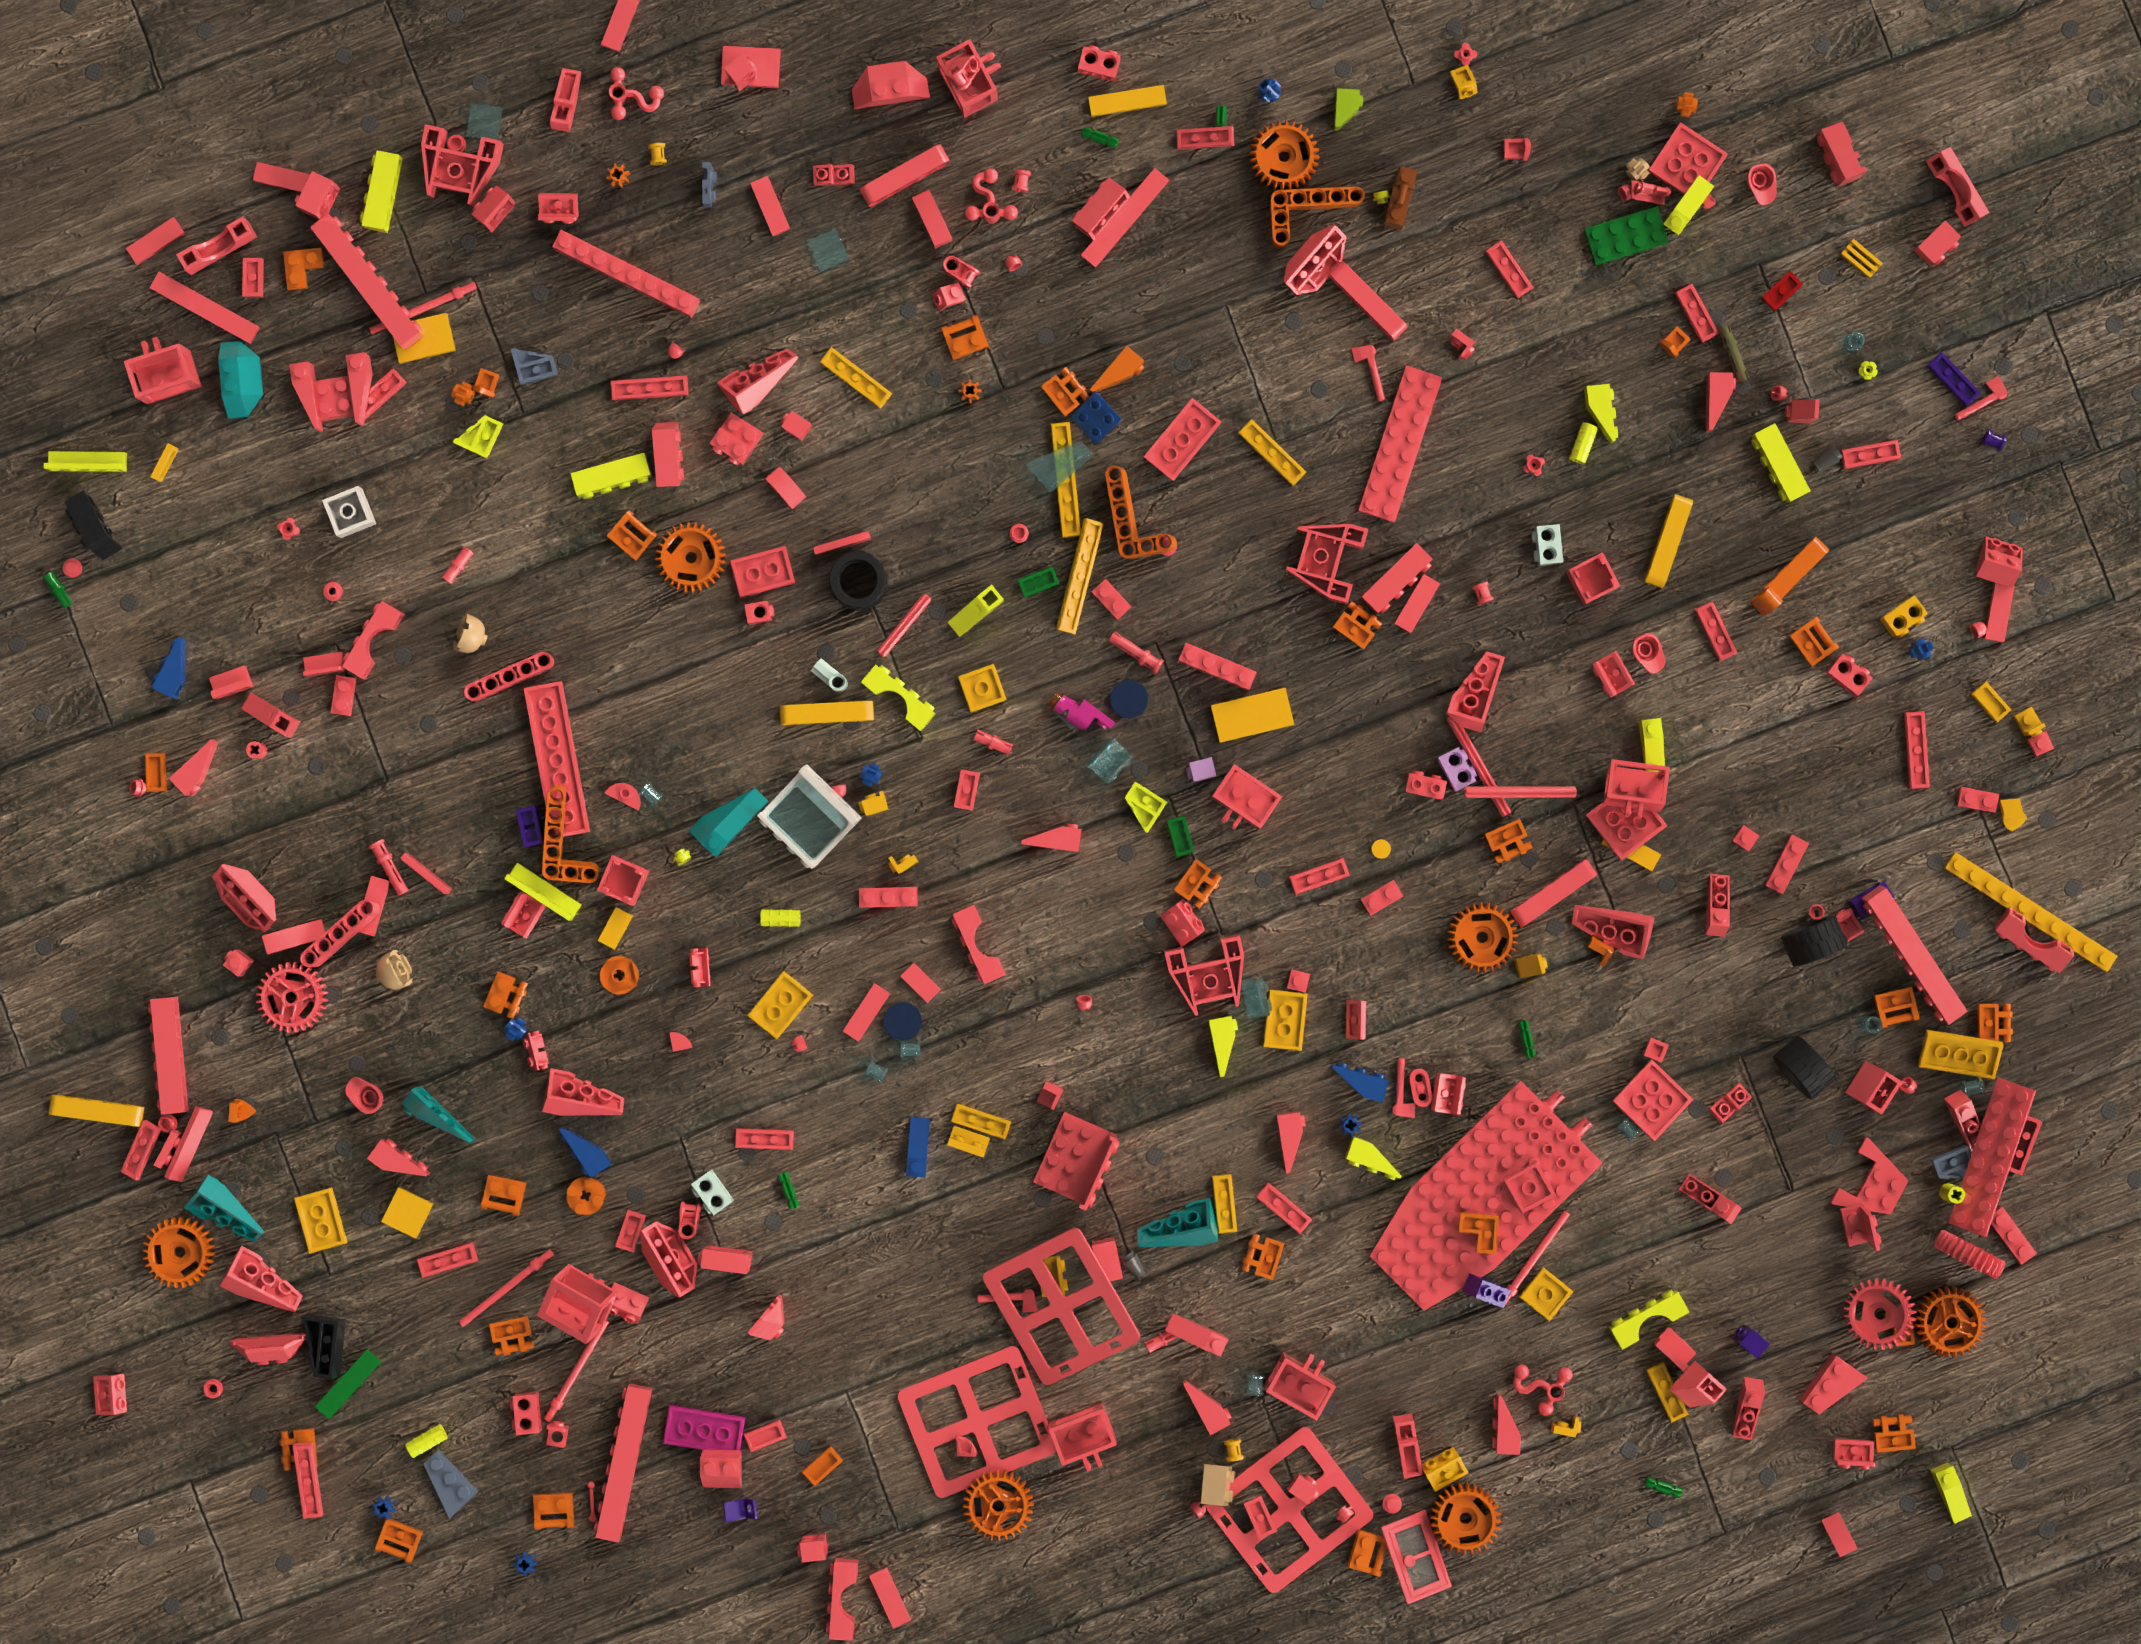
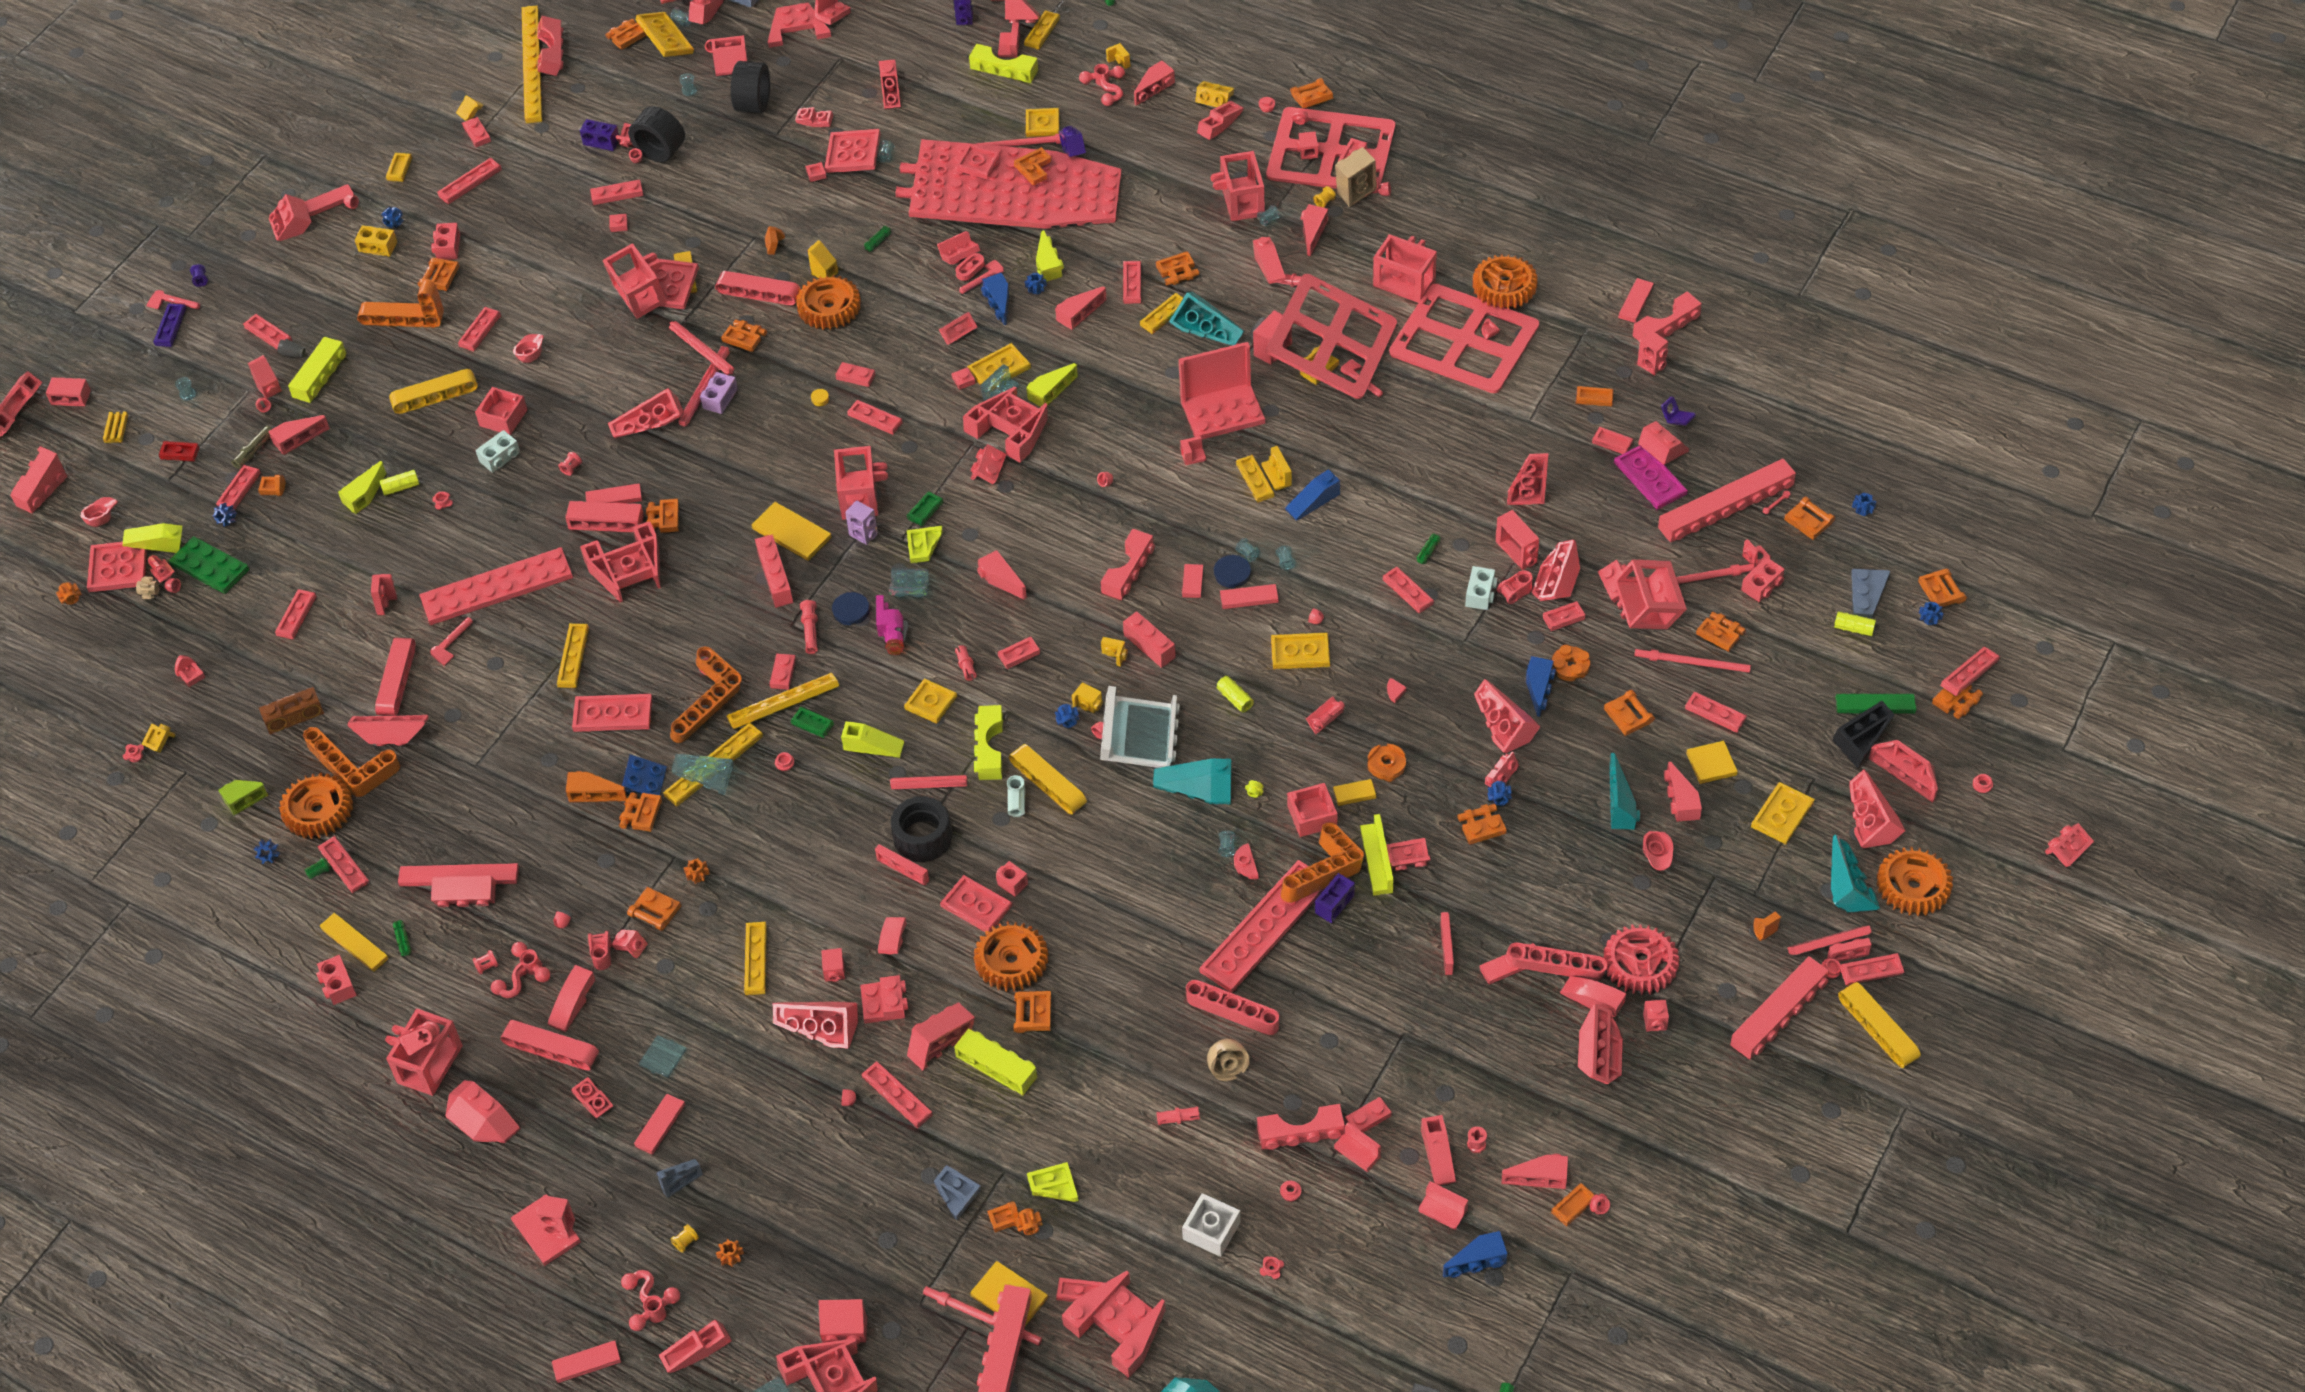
camera: 130 degrees left, 35 degrees down
(384, 859) = (1466, 980): coral pin -> none
(393, 971) = (1546, 904): tan cylinder -> none
(558, 207) = (799, 1276): coral bracket -> none
(626, 274) = (812, 1180): coral brick -> none
(1193, 879) = (950, 476): orange plate -> none
(1381, 197) = (300, 724): neon yellow plate -> none
(1416, 1556) = (1287, 70): coral door -> none
(1426, 786) = (747, 398): coral bracket -> none
(1478, 1525) = (1239, 52): orange gear -> none
(1613, 674) = (563, 356): coral bracket -> none
(1620, 929) = (748, 237): coral wedge -> none
(1652, 742) = (595, 306): neon yellow slope -> none
(1669, 280) = (224, 514): none -> blue gear
(1718, 906) = (684, 201): coral slope -> none
(1867, 365) = (202, 371): neon yellow plate -> none
(1894, 1001) = (660, 85): orange plate -> none
(1913, 954) = (616, 86): coral brick -> none
(2029, 722) = (396, 139): yellow bracket -> none
(2040, 743) = (406, 127): coral plate -> none

